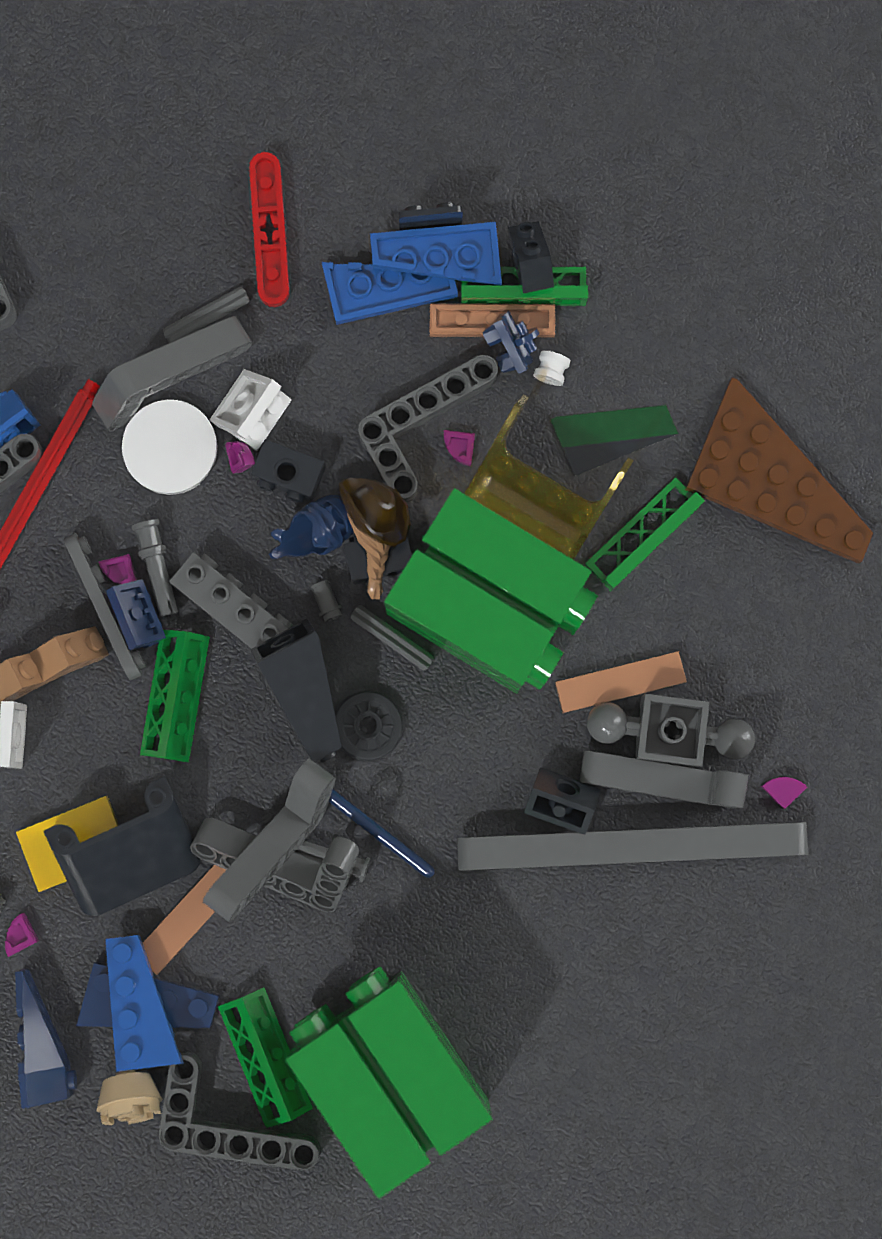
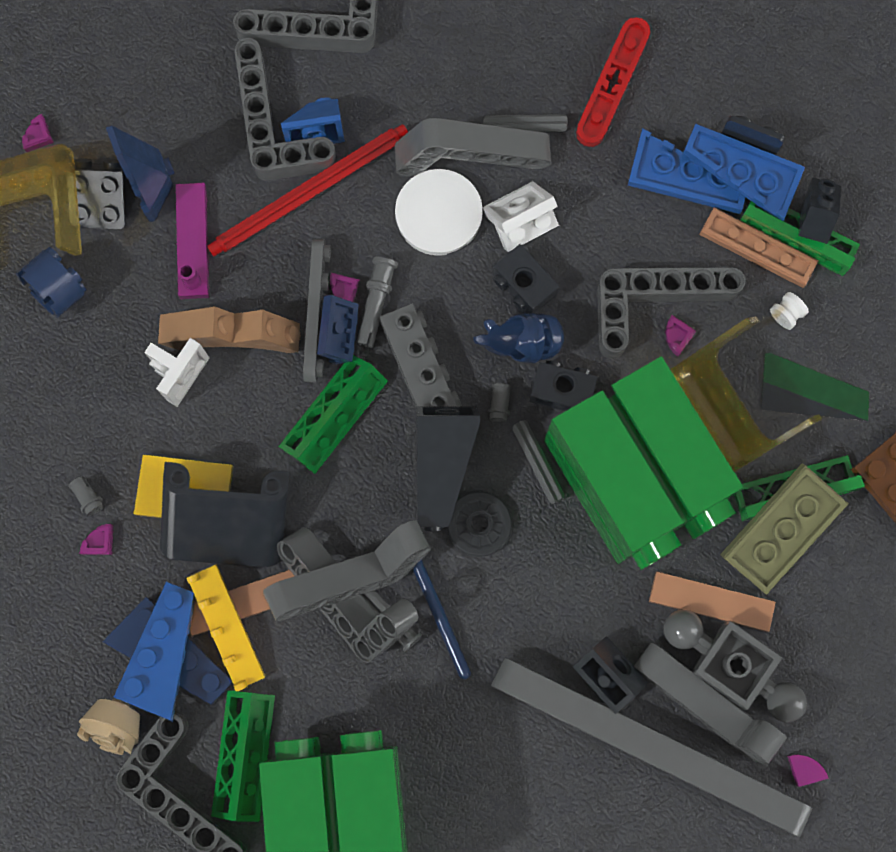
camera: 30 degrees right, 5 degrees down
(45, 1069) = (58, 661): dark blue wedge -> none
(184, 949) = (226, 627): none -> yellow hinge
(239, 456) = (491, 248): magenta tile -> none
(378, 520) = (579, 357): dark brown hat -> none
(516, 339) = (772, 272): dark blue hips -> none
(651, 580) = (784, 528): none -> olive tile

